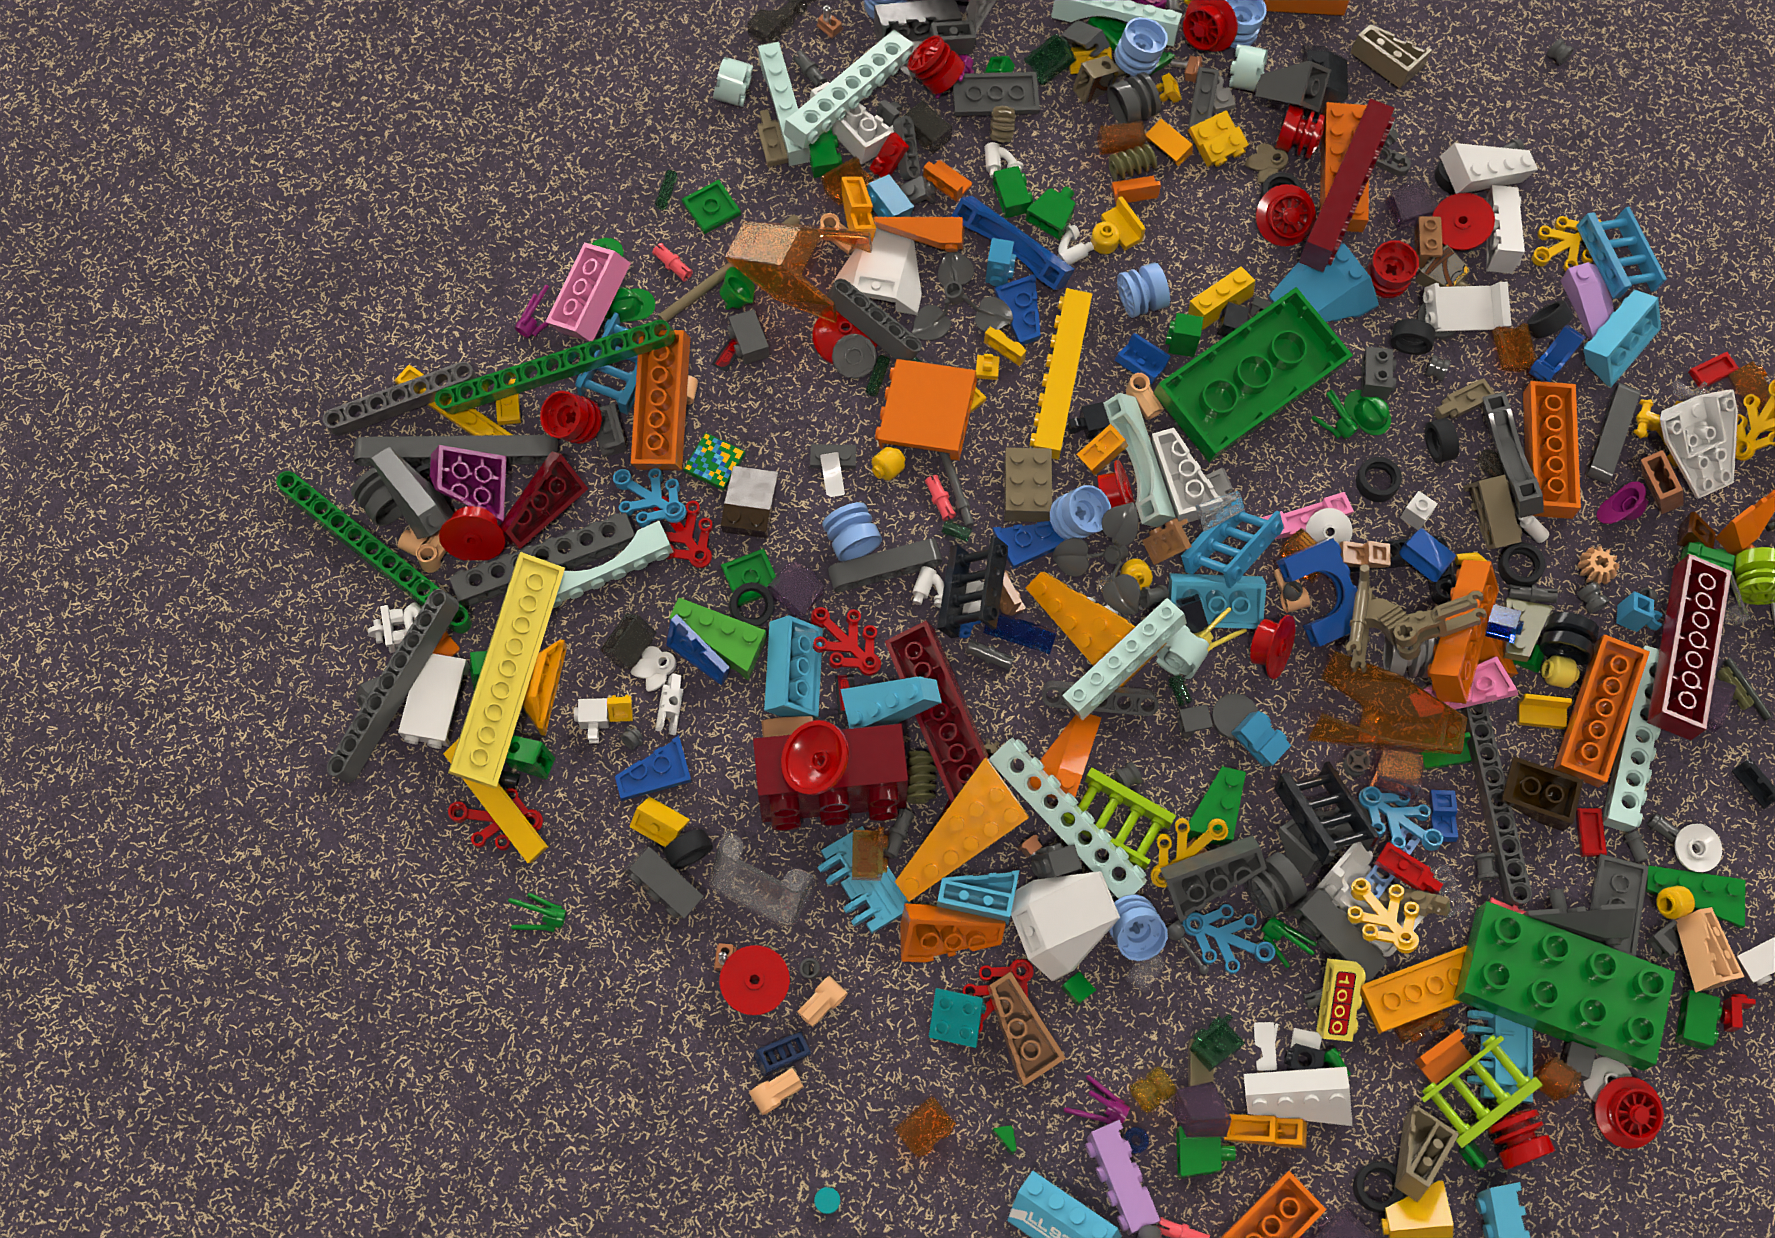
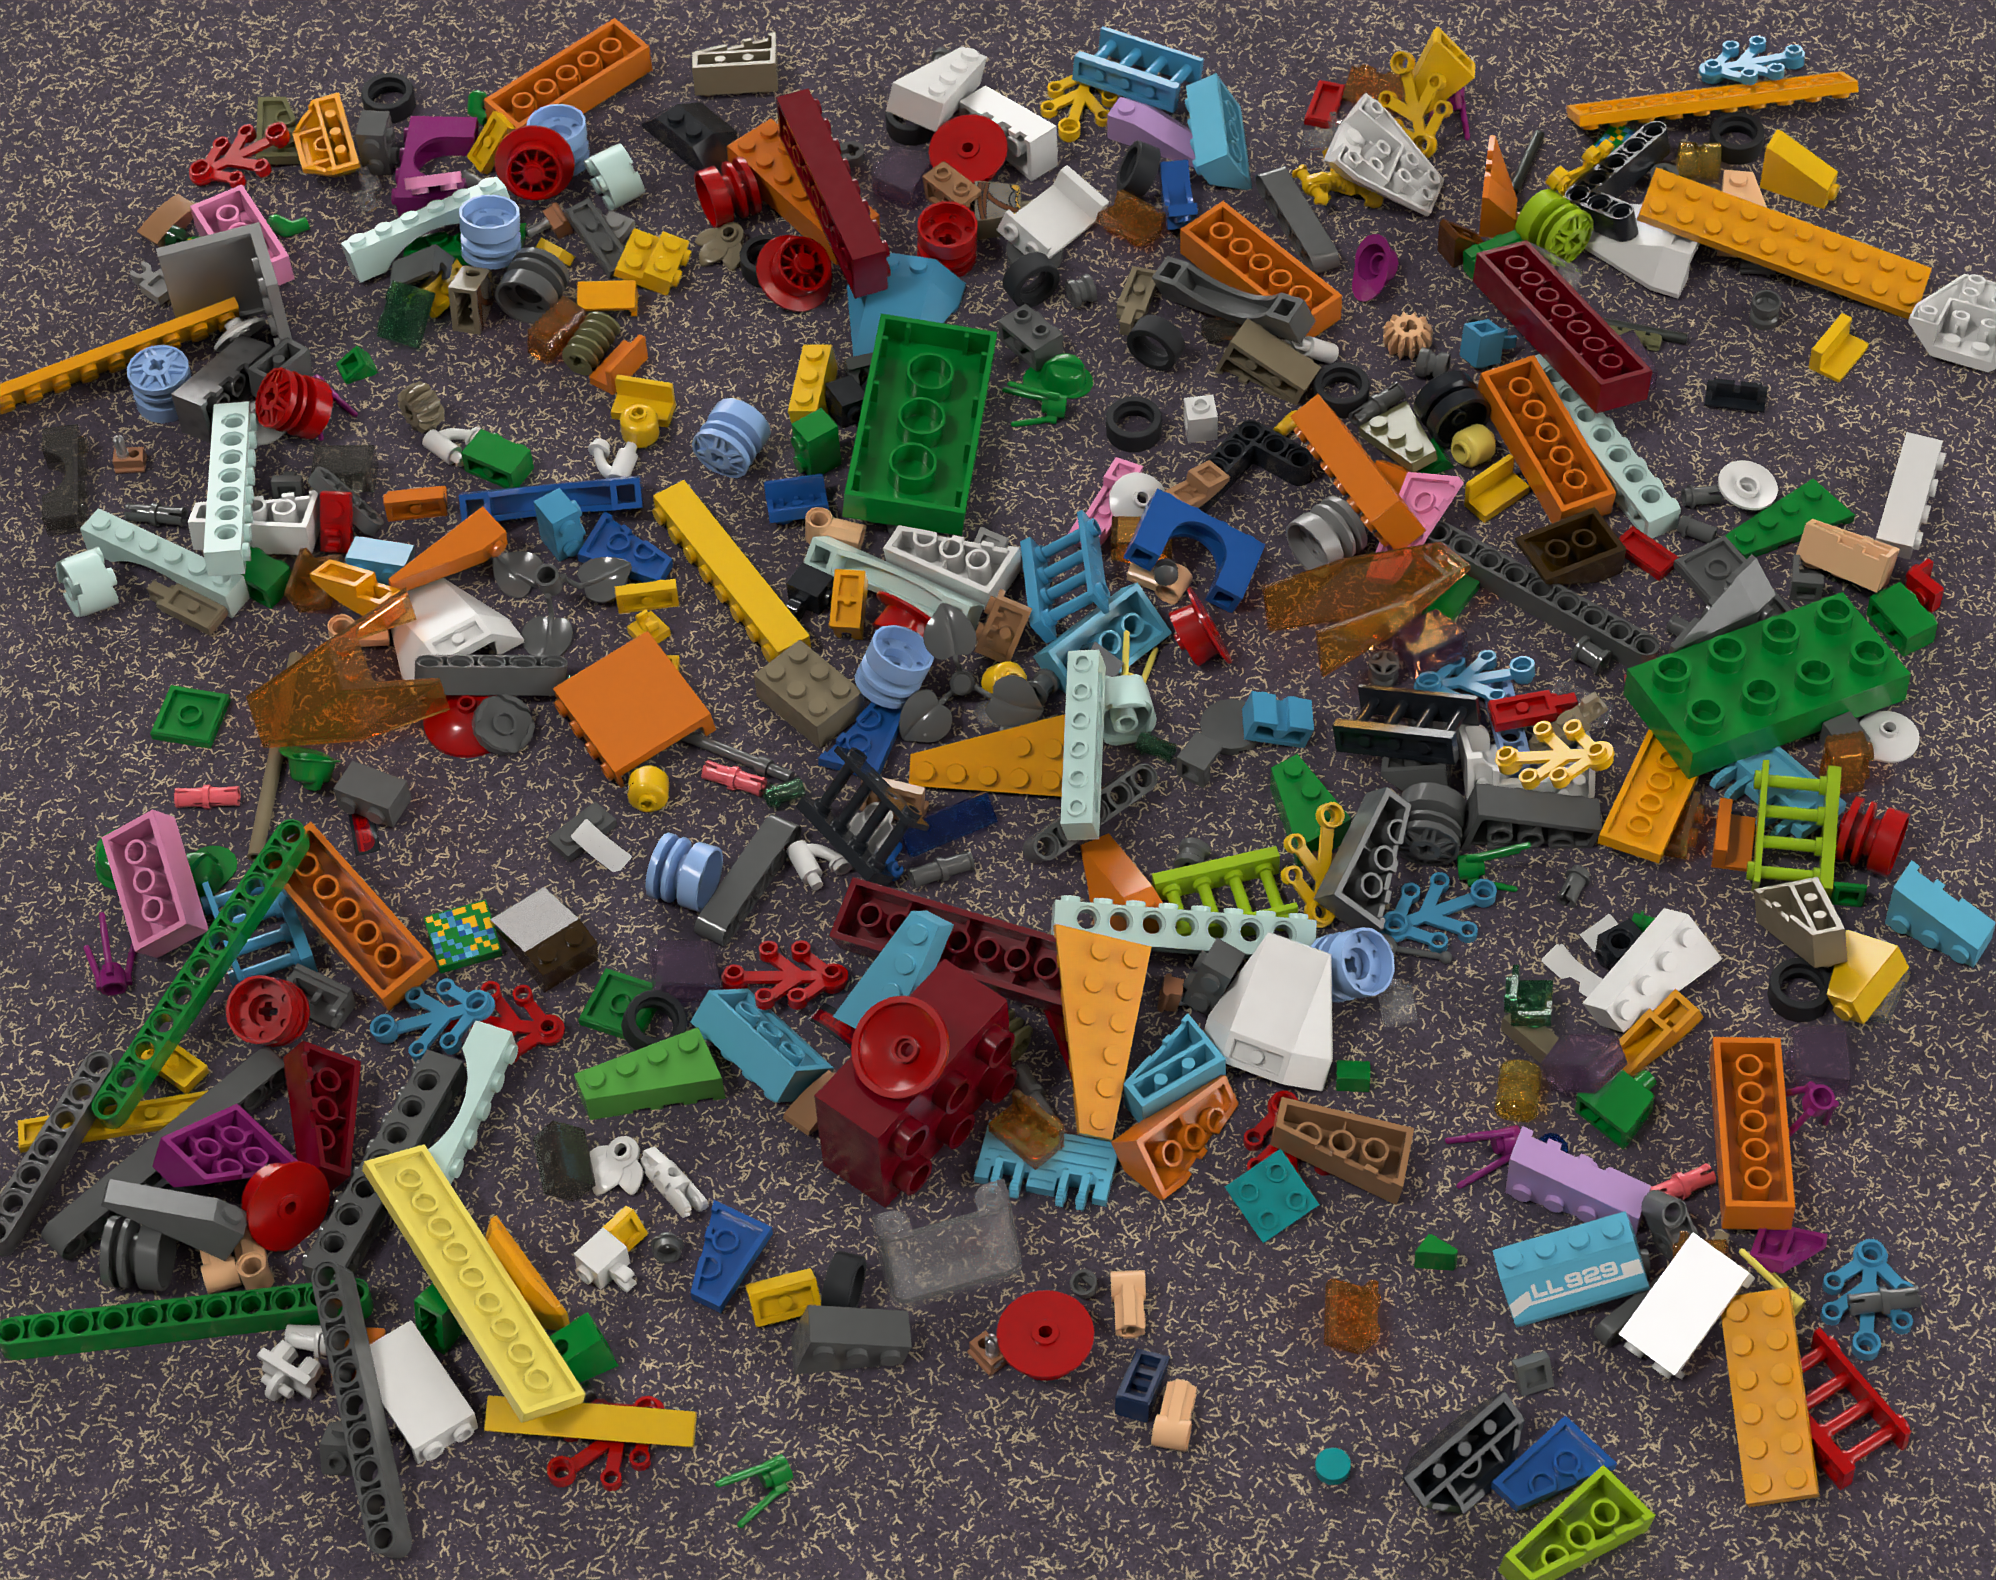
camera: 40 degrees left, 15 degrees down
(666, 189) = (122, 739): clear green axle -> none
(695, 650) = (642, 1110): blue wing -> none
(877, 375) = (545, 725): clear green axle -> none
(919, 190) = (400, 529): dark grey bracket -> none
(983, 91) = (372, 392): dark grey plate -> none
(1052, 211) = (560, 446): green torso -> none
(1207, 512) = (1018, 565): clear slope -> none
(1295, 85) = (680, 152): dark grey slope -> none
(1340, 1000) = (1595, 863): light yellow brick -> none
(1402, 628) = (1304, 506): dark tan piece -> none
(1427, 555) = (1254, 440): blue piece -> none
(1443, 813) = (1505, 643): blue slope -> none
(1504, 623) = (1384, 439): clear blue brick -> none
(1629, 1112) = (1933, 739): red piece -> none
(1662, 482) = (1389, 216): nougat brick -> none
(1675, 902) = (1779, 539): yellow head -> none

